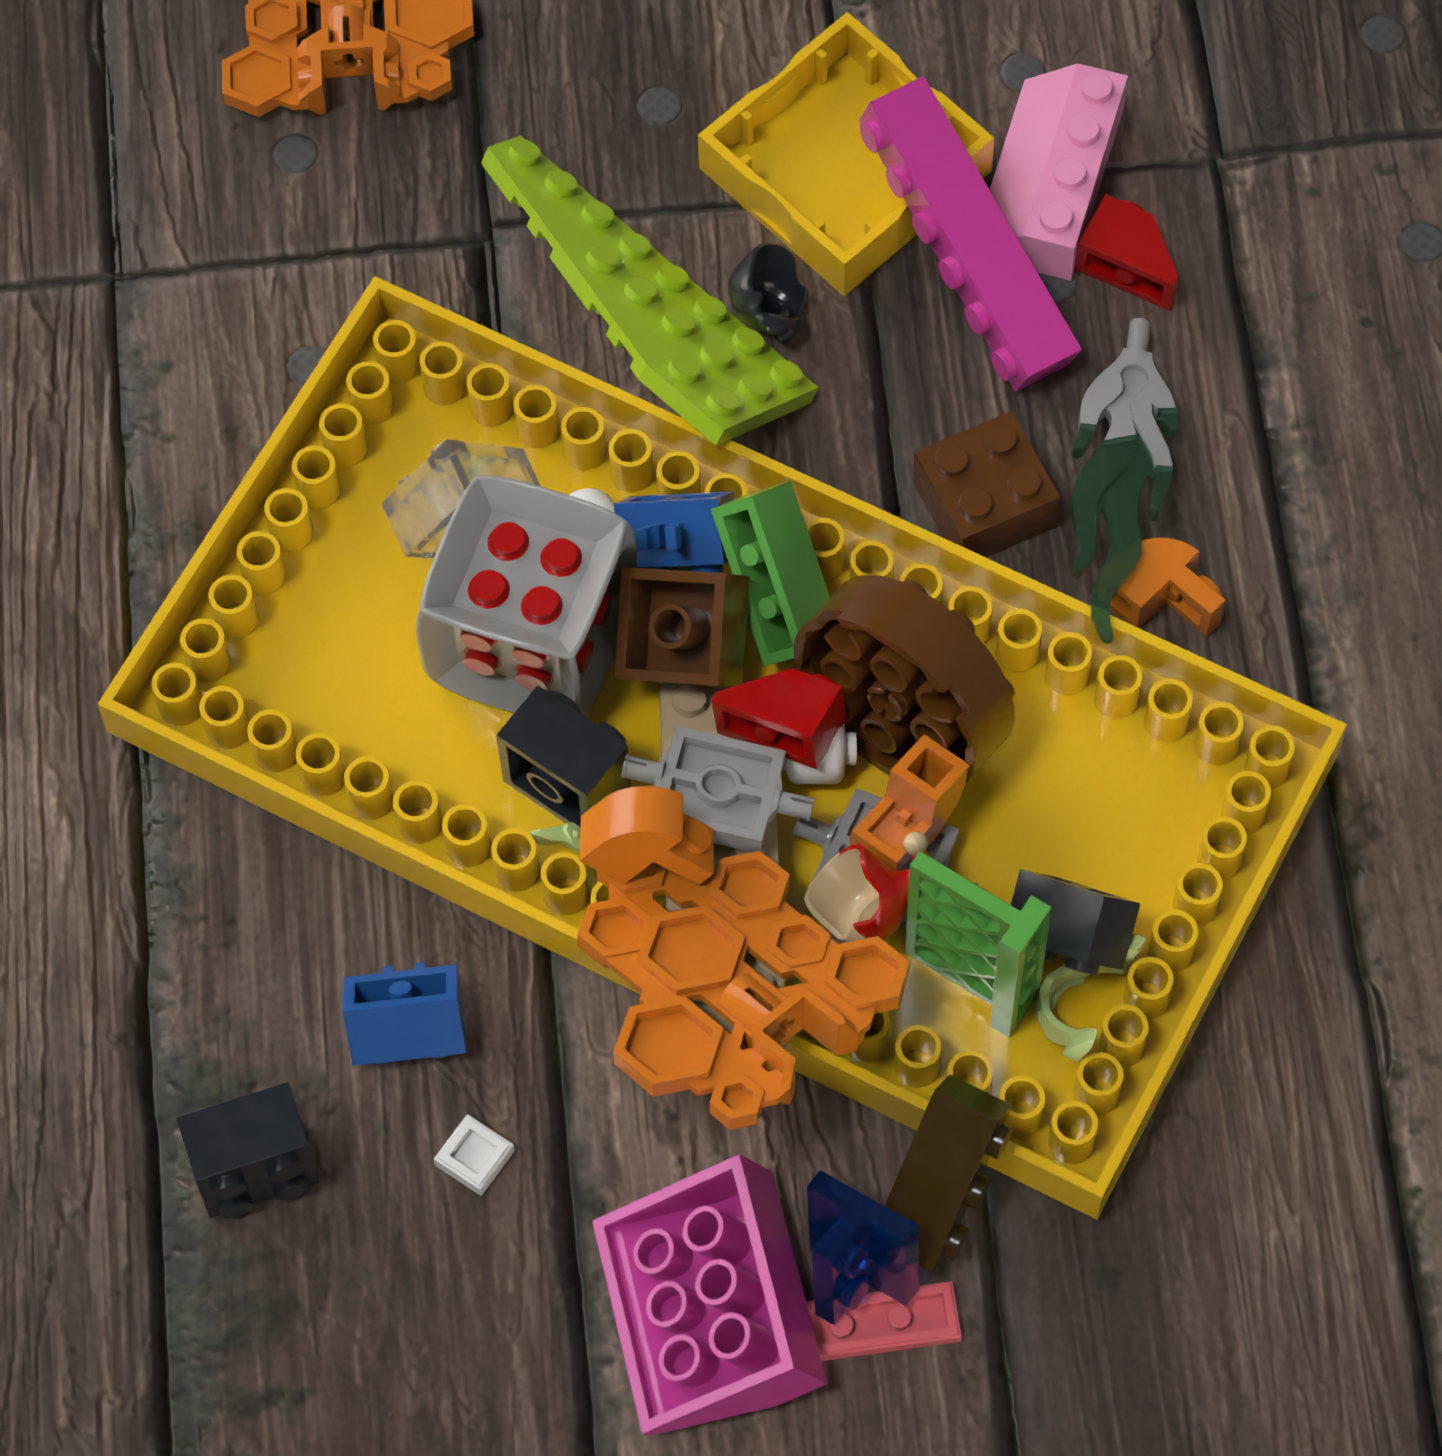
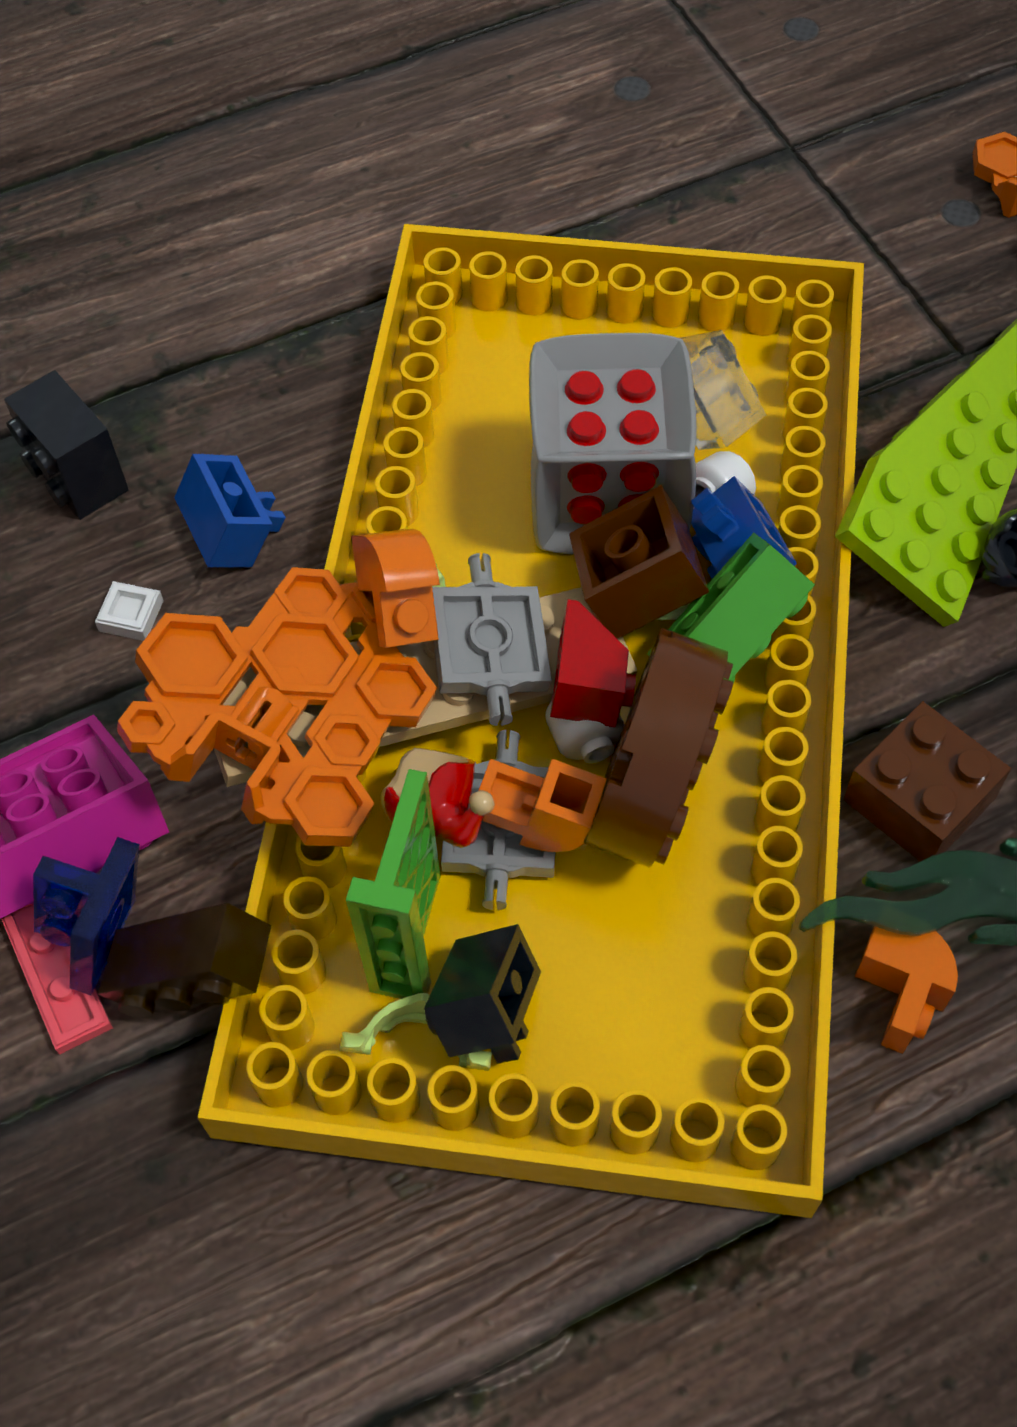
camera: 70 degrees right, 5 degrees down
(561, 755) = (483, 516): black brick -> none

